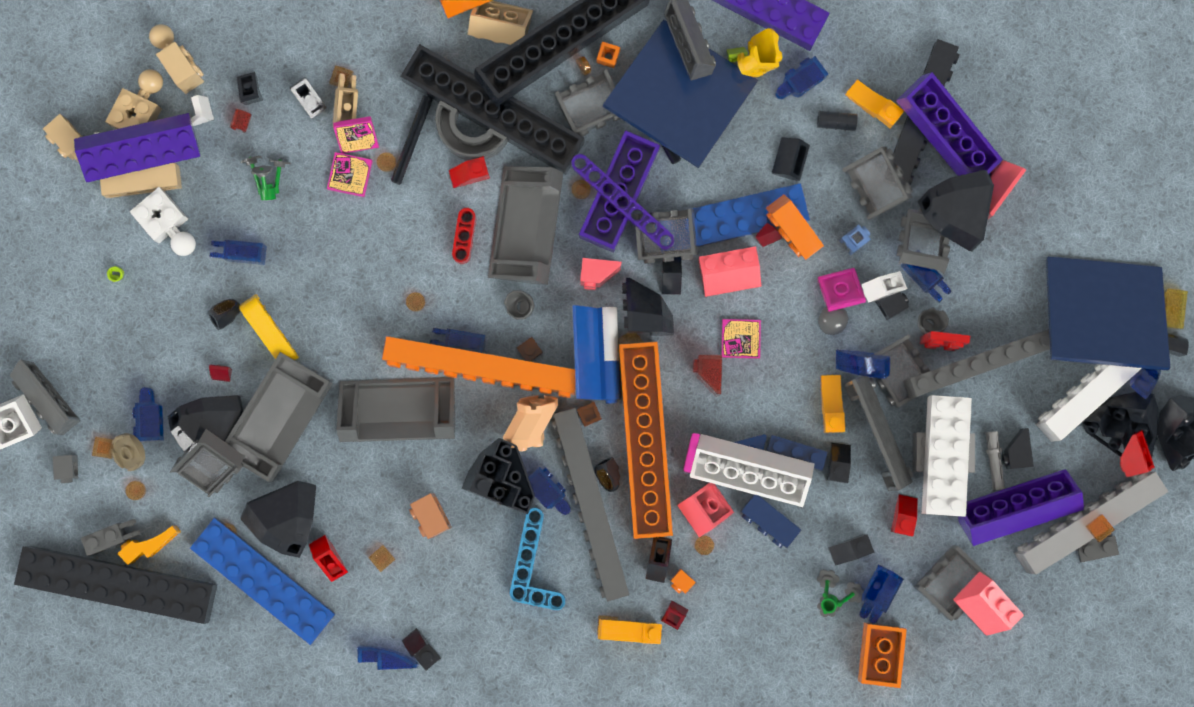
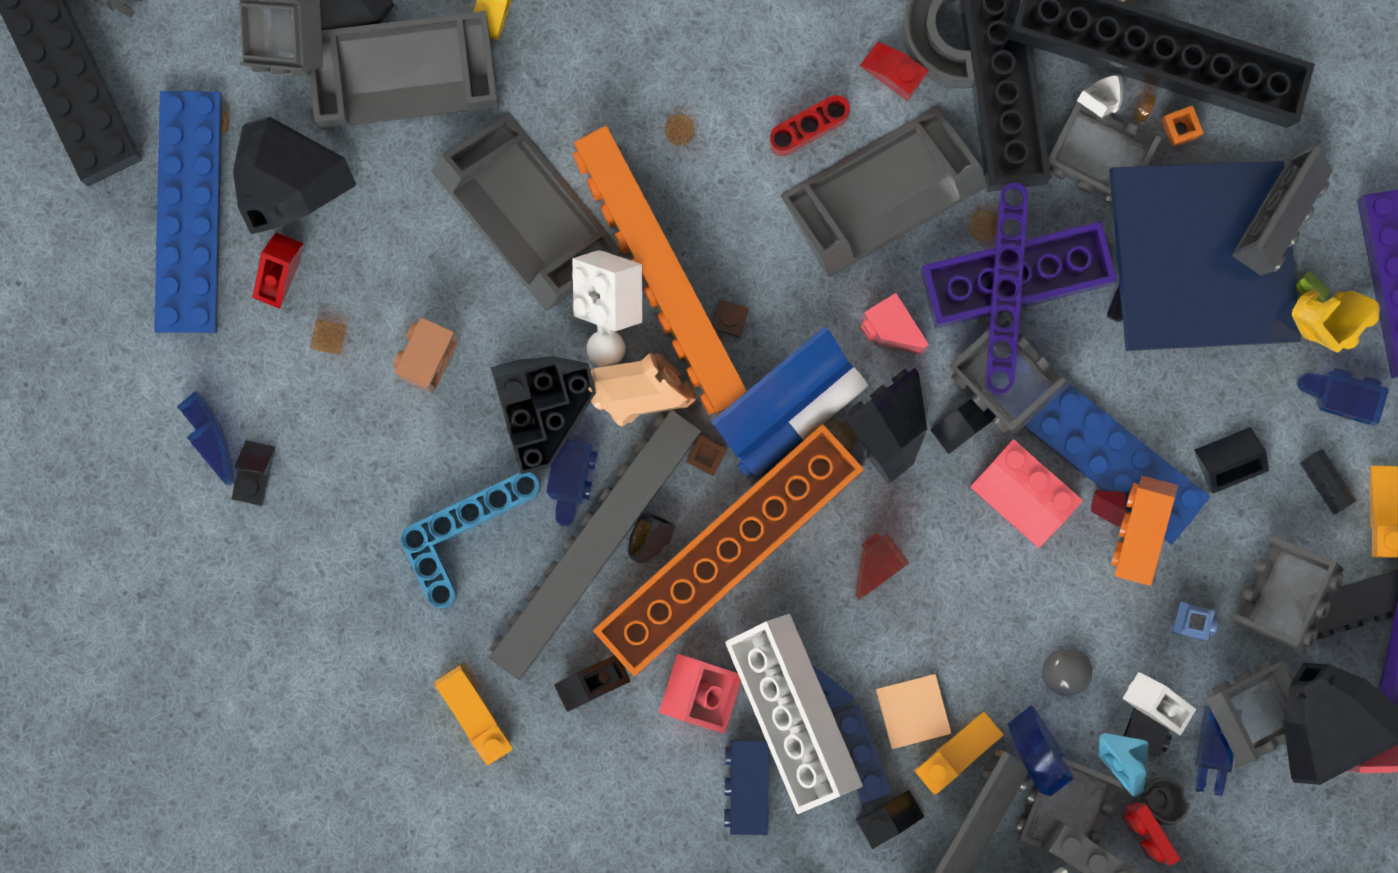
camera: 55 degrees right, 0 degrees up
(134, 549) = (106, 26): light orange slope -> none
(460, 340) = (674, 223): clear blue hinge -> none
(472, 401) = (609, 295): none -> white brick
(526, 304) = (776, 249): dark grey hair -> none
(563, 80) = (1104, 95): none -> white tile
(674, 615) = (537, 757): dark red slope -> none
(681, 582) = (585, 734): orange plate -> none
(691, 453) = (755, 619): dark pink tile -> none
(704, 545) = (654, 727): clear orange tile -> none
(741, 338) = (951, 573): tile -> none
(794, 410) = (913, 711): none -> light nougat tile
(841, 289) = (1114, 653): dark pink tile -> none
(899, 325) = (1125, 760): none -> medium azure slope

